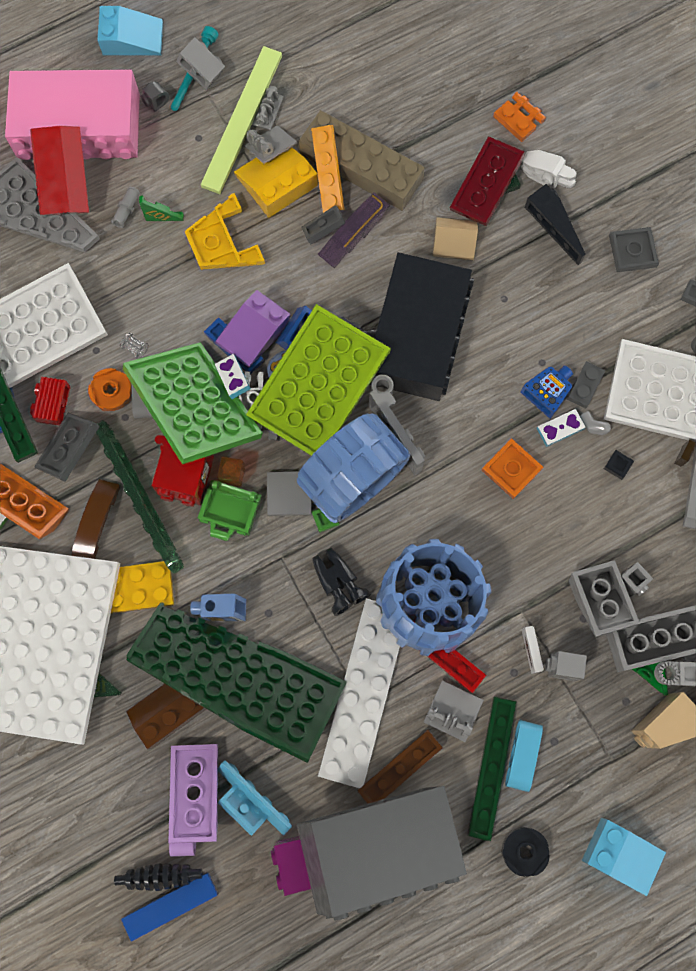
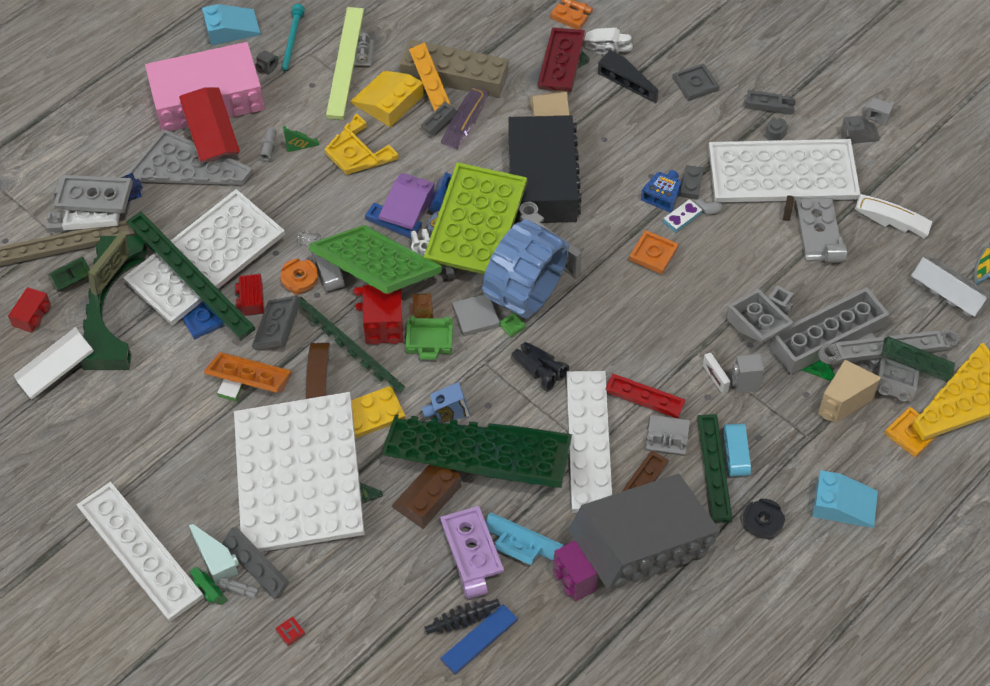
camera: 15 degrees left, 20 degrees down
(200, 63) = (298, 30): light grey brick -> none
(232, 376) = (402, 235): tile -> none
(269, 144) = (374, 74): light grey hinge -> none
(447, 562) = (622, 346): medium blue wheel -> none
(618, 464) = (738, 230): black tile -> none

